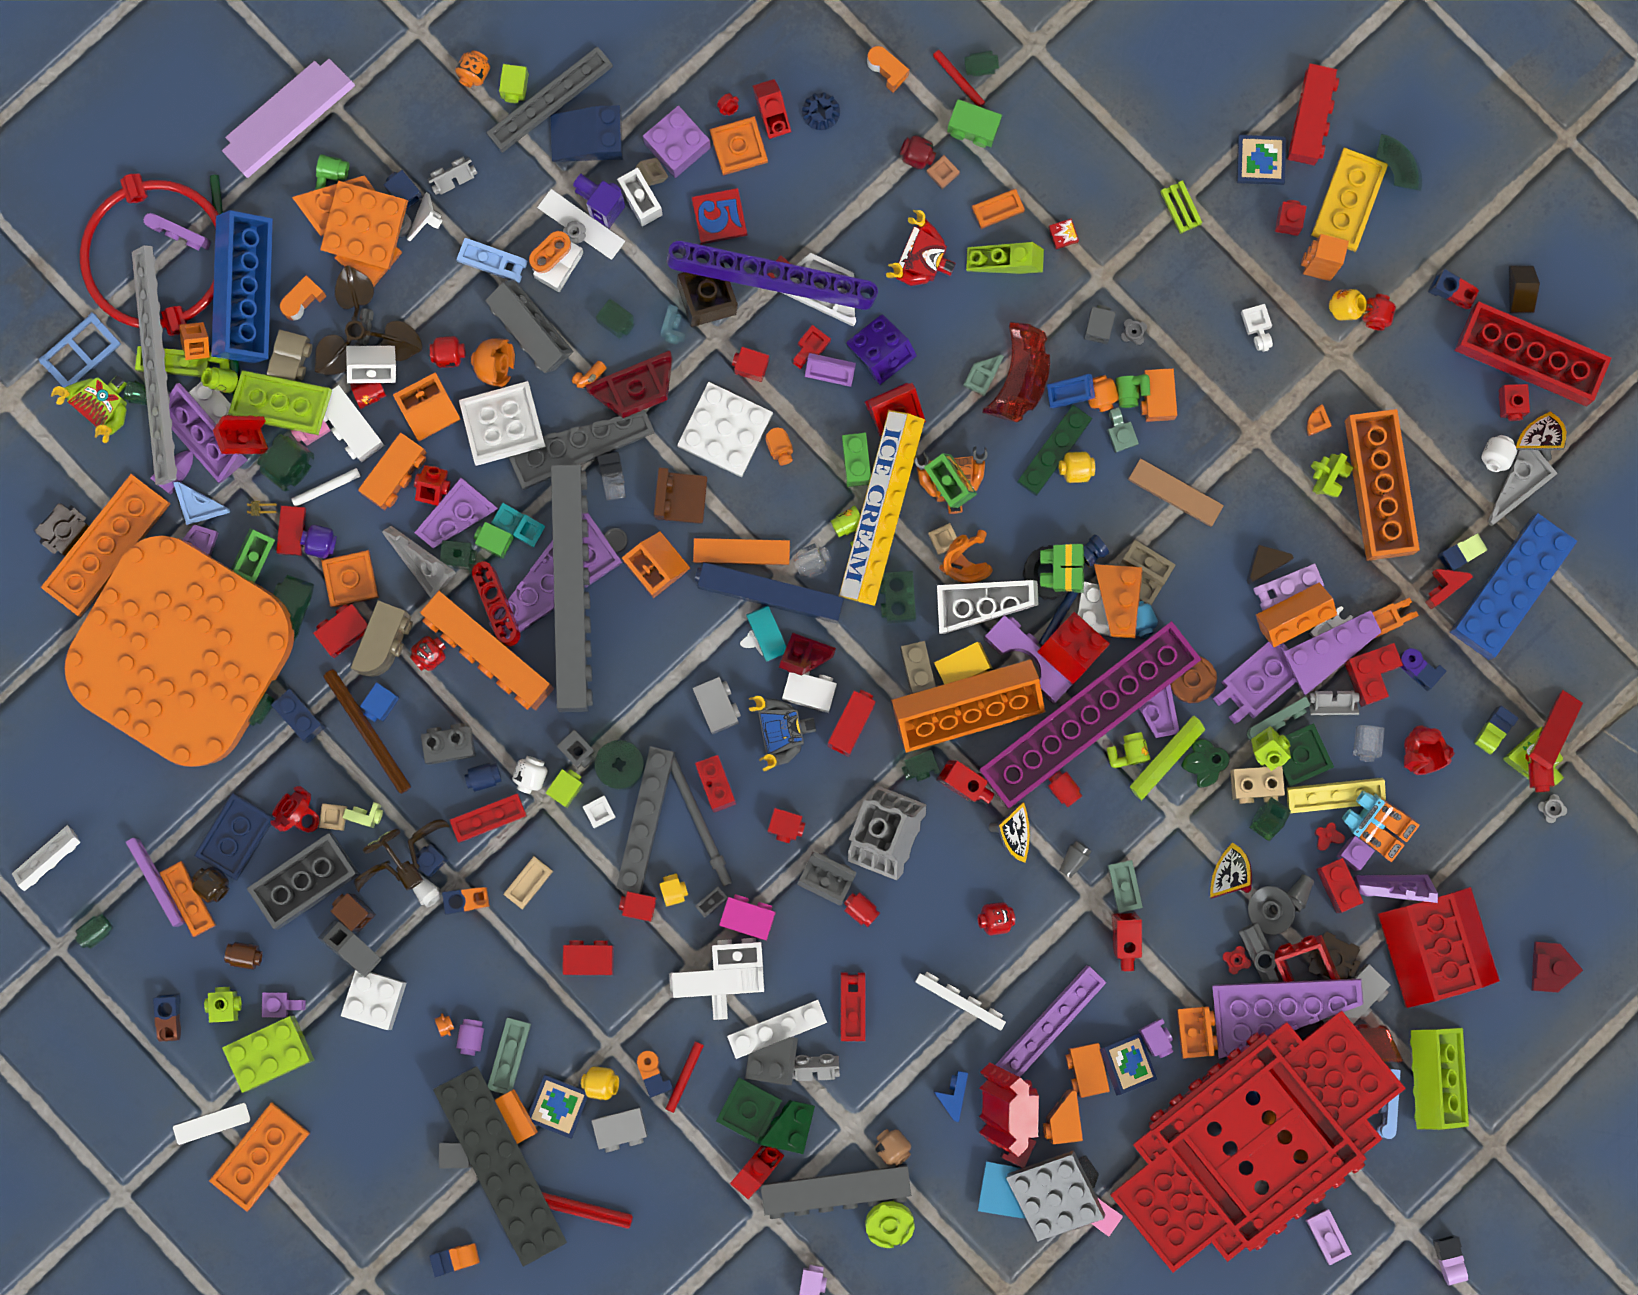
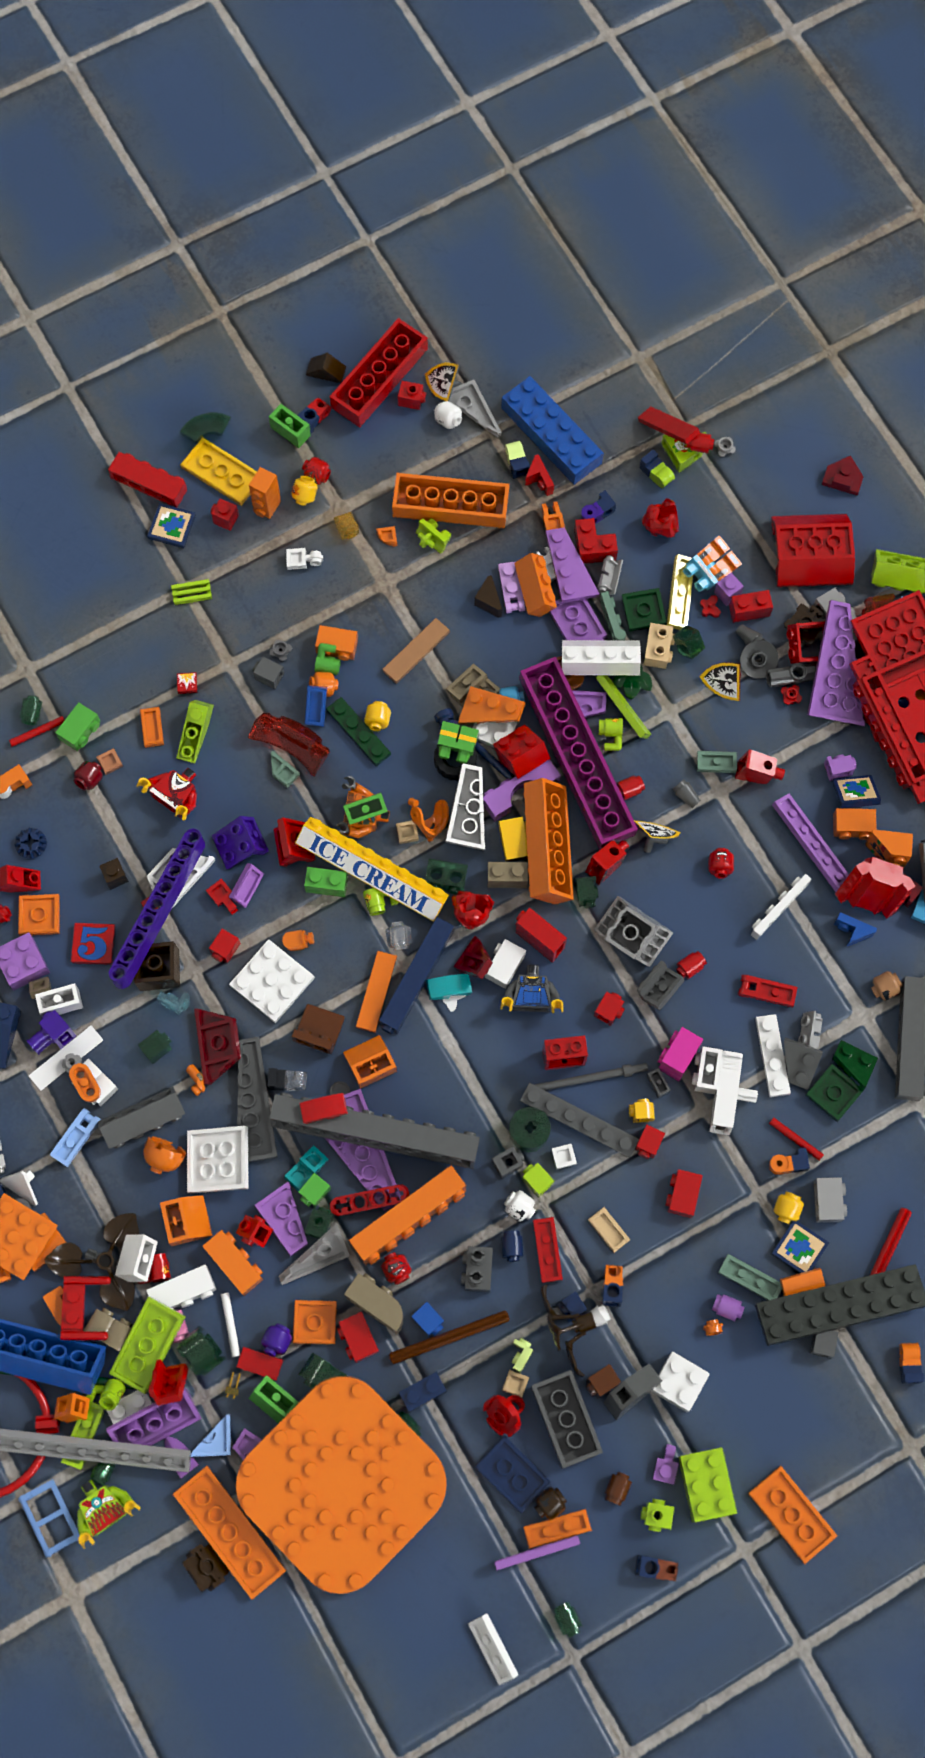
camera: 75 degrees left, 10 degrees down
(211, 1123) = (755, 1552): white sticker -> none
(300, 312) = (73, 1308): none -> red plate
(447, 352) = (143, 1192): red head -> none
(575, 522) = (323, 1108): none -> red slope
(716, 705) = (498, 1040): light grey brick -> none
(756, 1170) = (885, 1097): red slope -> none
(805, 215) = (113, 873): none -> dark brown brick
(865, 636) = (471, 909): none -> red helmet
(1121, 434) = (360, 678): sand green plate -> none
(1196, 1032) = (841, 736): orange bracket -> none
(1219, 714) = (601, 657): none -> white slope
(1271, 748) = (639, 623): lime brick -> none
(1316, 368) = (346, 526): none -> clear yellow bracket
(1368, 742) = (645, 559): clear brick -> none
(1397, 886) = (761, 563): medium lavender wing -> none
(1429, 264) = (289, 425): none -> bright green brick

